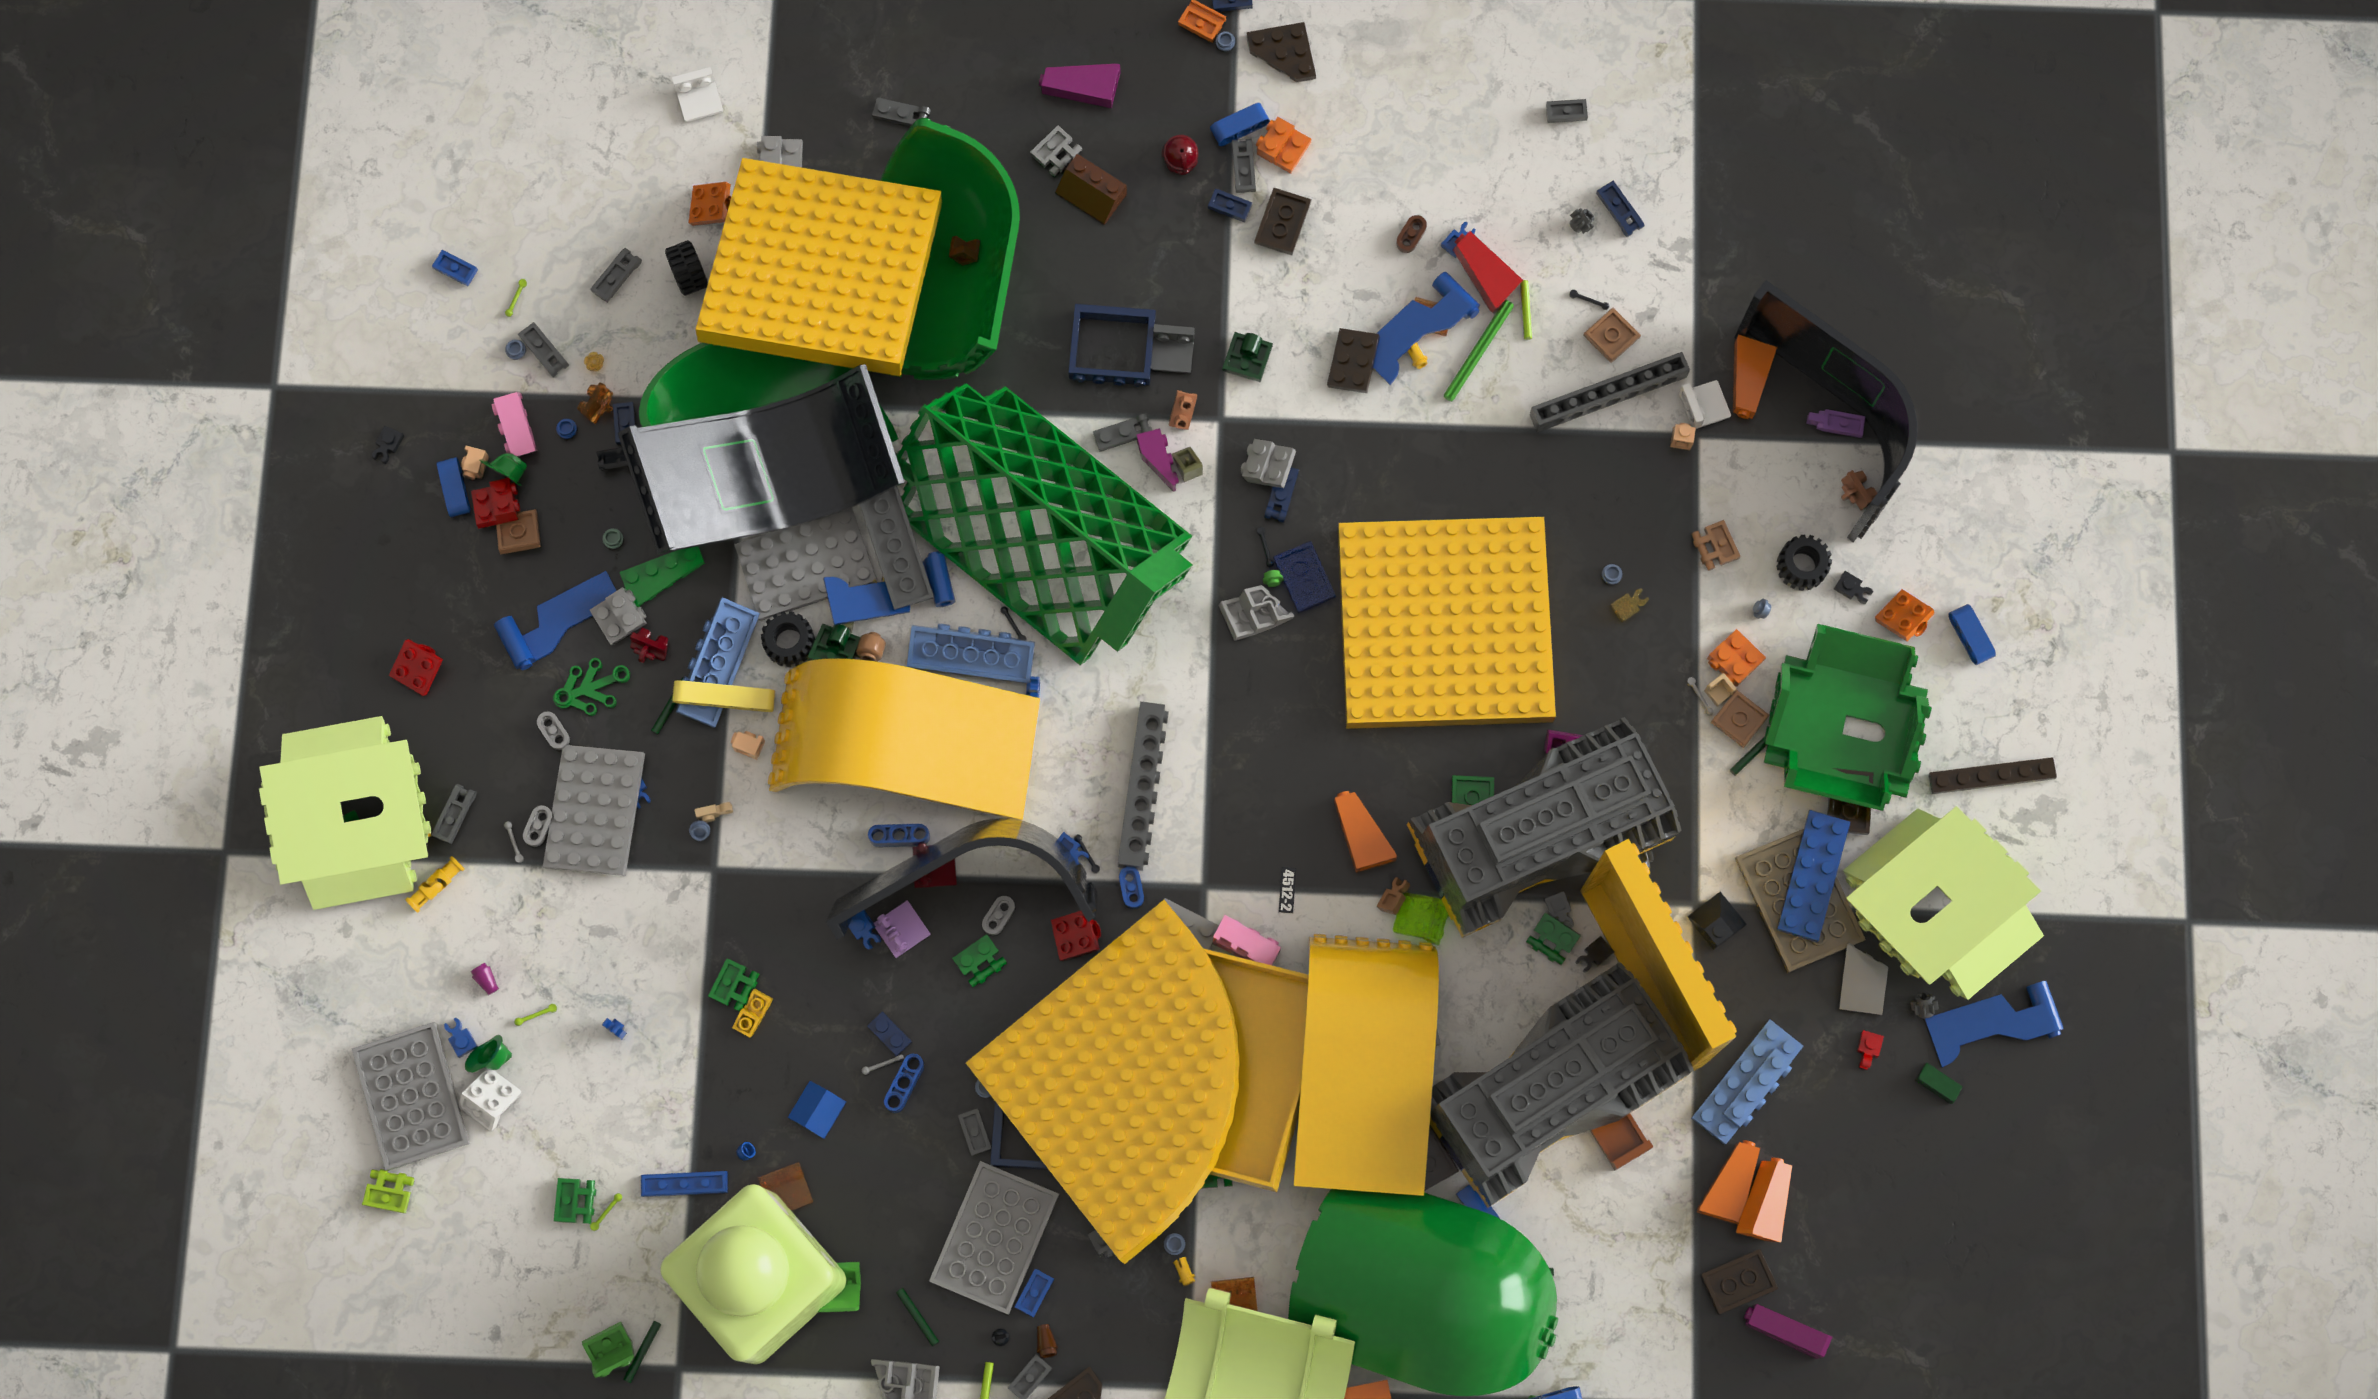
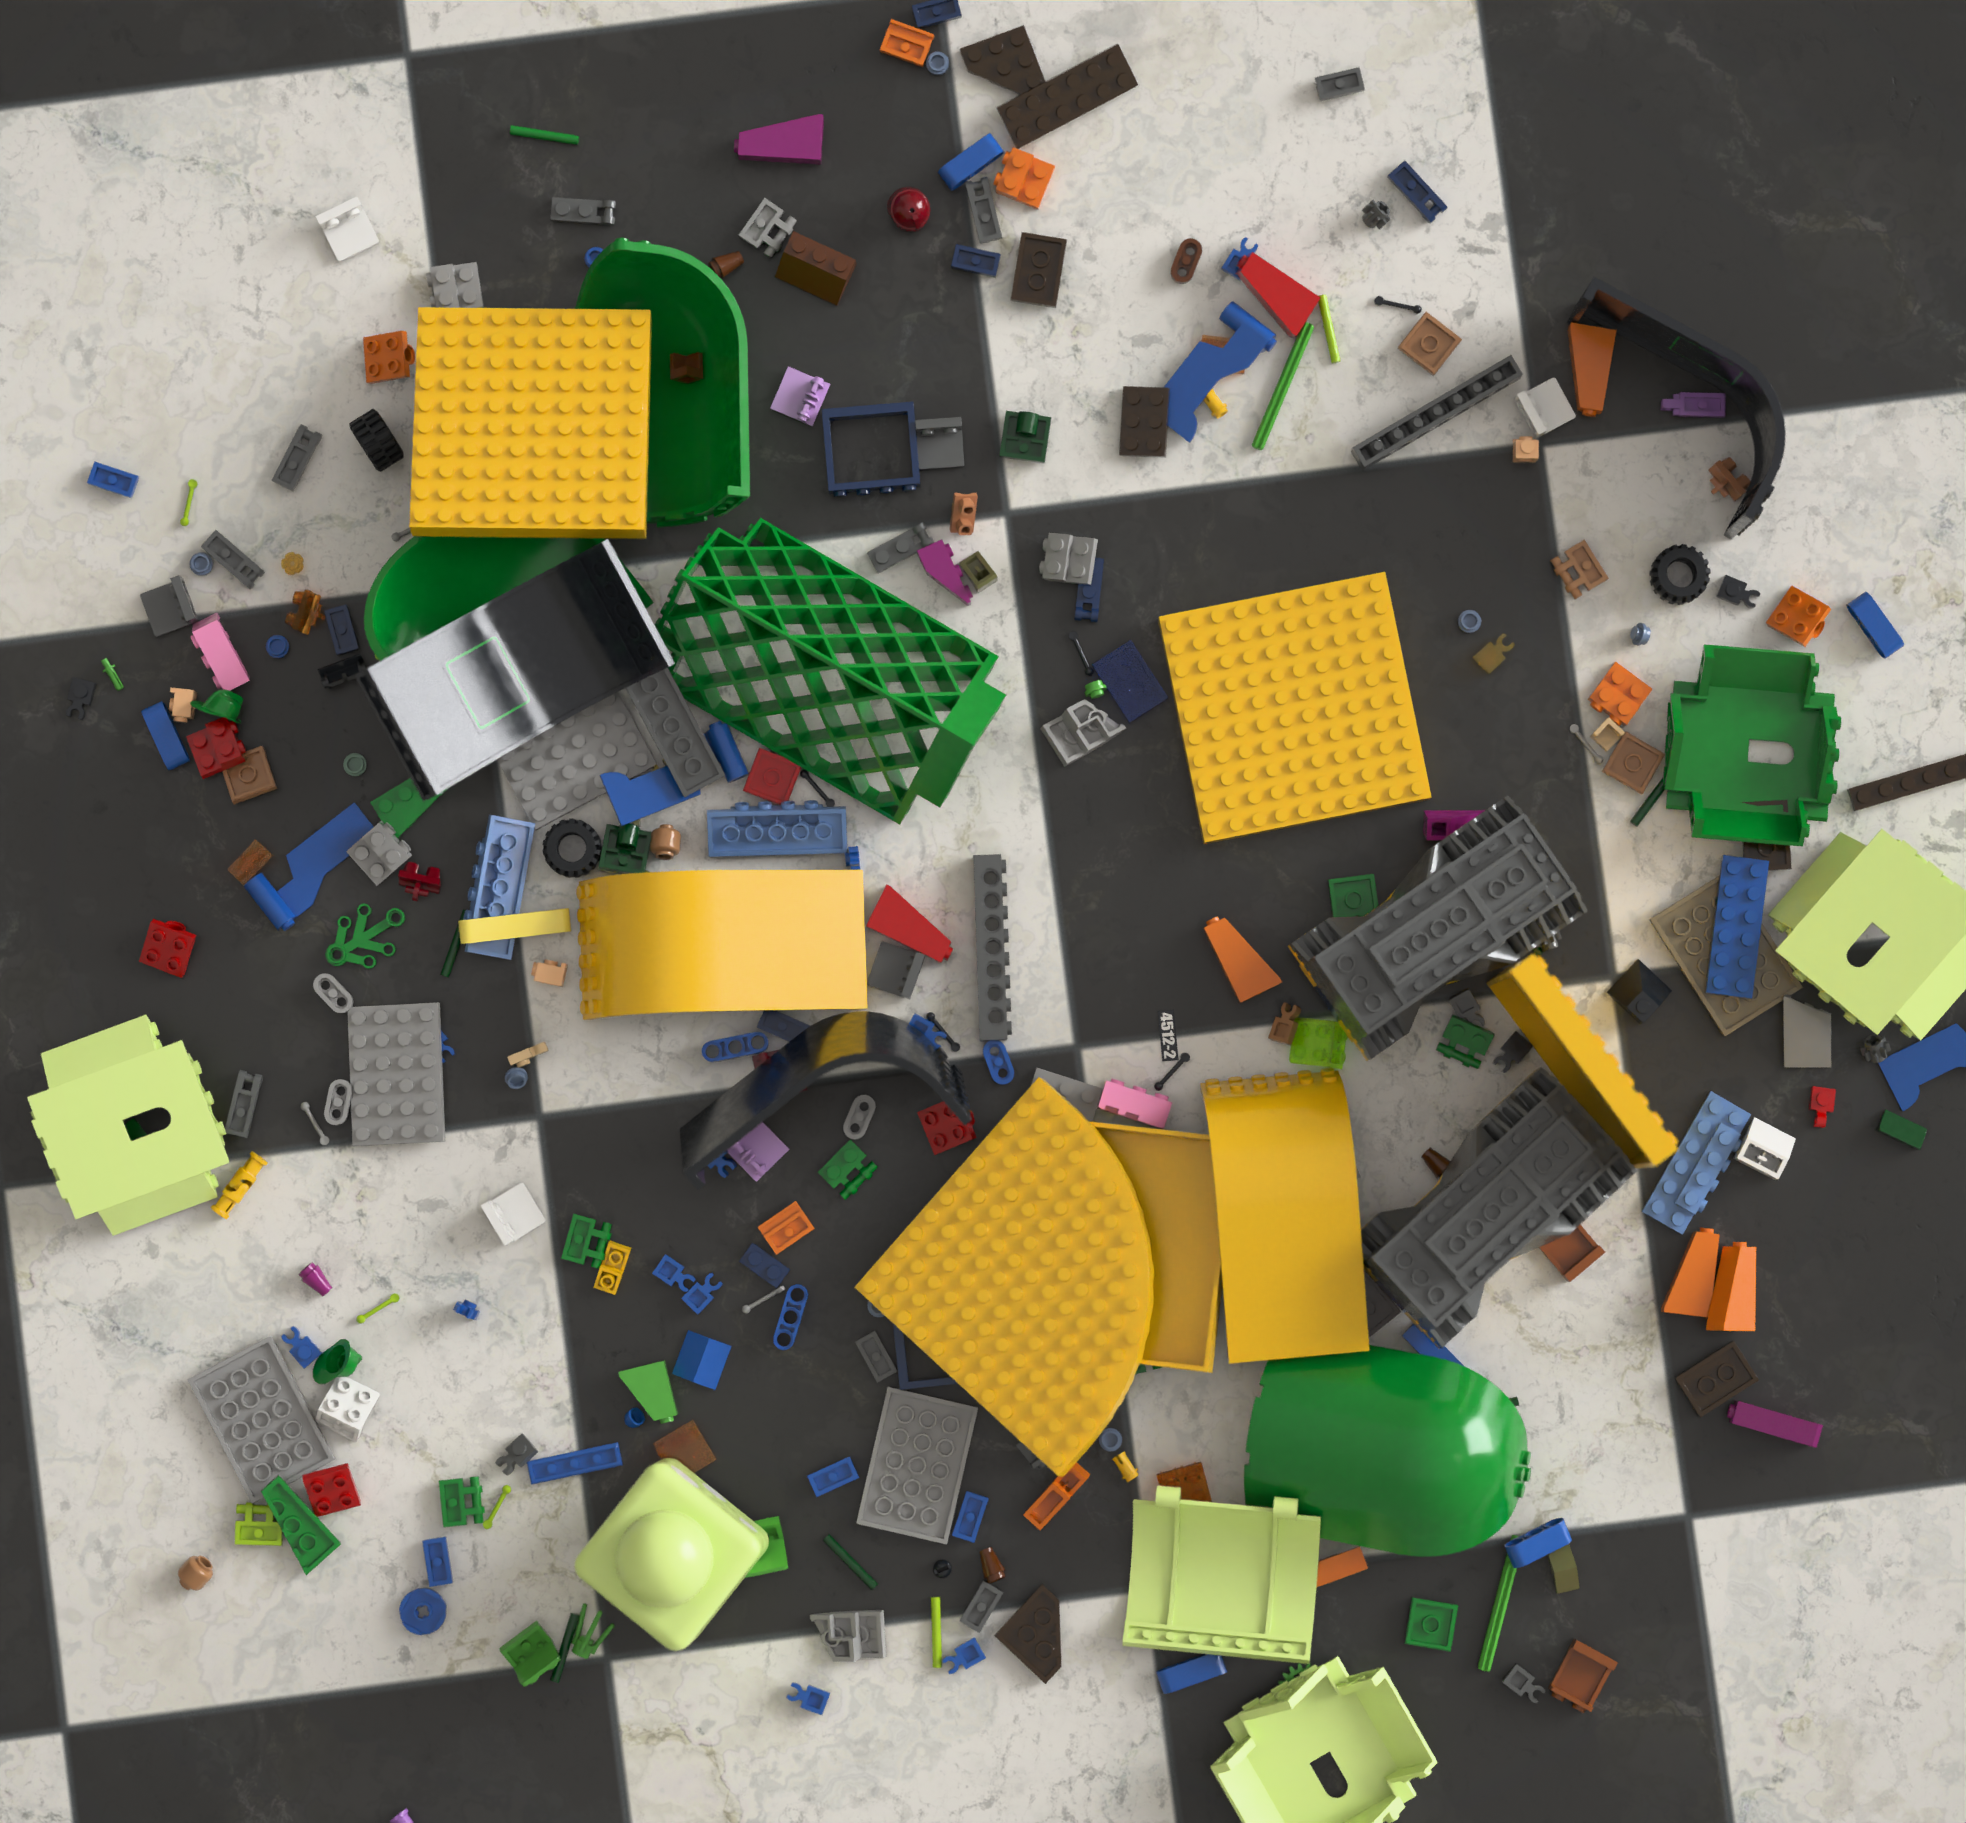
camera: 10 degrees left, 10 degrees up
(321, 1225) = (195, 1573): none -> medium nougat head
(419, 430) = (112, 674): none -> bright green piece
(426, 1201) = (302, 1528): none -> green wing
(459, 1169) = (331, 1490): none -> red plate
(480, 380) = (169, 607): none -> dark grey bracket
(503, 605) = (250, 862): none -> clear orange hips
(507, 1295) = (436, 1610): none -> blue plate
(542, 1252) = (437, 1561): none -> blue plate
(636, 1165) = (519, 1451): none -> dark grey plate
(659, 1350) = (584, 1645): none -> bright green plant
(673, 950) = (513, 1214): none -> white bracket
(767, 1128) = (652, 1389): none -> bright green slope
(804, 1025) = (670, 1271): none -> blue plate
(826, 1051) = (699, 1296): none -> blue plate
(880, 47) = (545, 135): none -> green bar
(914, 1003) = (786, 1227): none -> orange plate
(916, 1235) = (833, 1476): none -> blue plate
(942, 822) = (781, 1025): none -> dark blue plate
(975, 607) = (771, 777): none -> red plate
(1018, 173) = (726, 263): none -> reddish brown cone
(1054, 792) = (895, 970): none -> dark grey bracket
(1059, 293) = (800, 396): none -> lavender hinge
(1067, 752) = (905, 925): none -> red slope
(1116, 1286) = (1056, 1496): none -> orange slope
(1298, 912) = (1185, 1057): none -> black hinge
(1331, 84) = (1067, 96): none -> dark brown plate
(1509, 1040) = (1435, 1162): none -> reddish brown cone
(1811, 1079) = (1765, 1149): none -> white slope

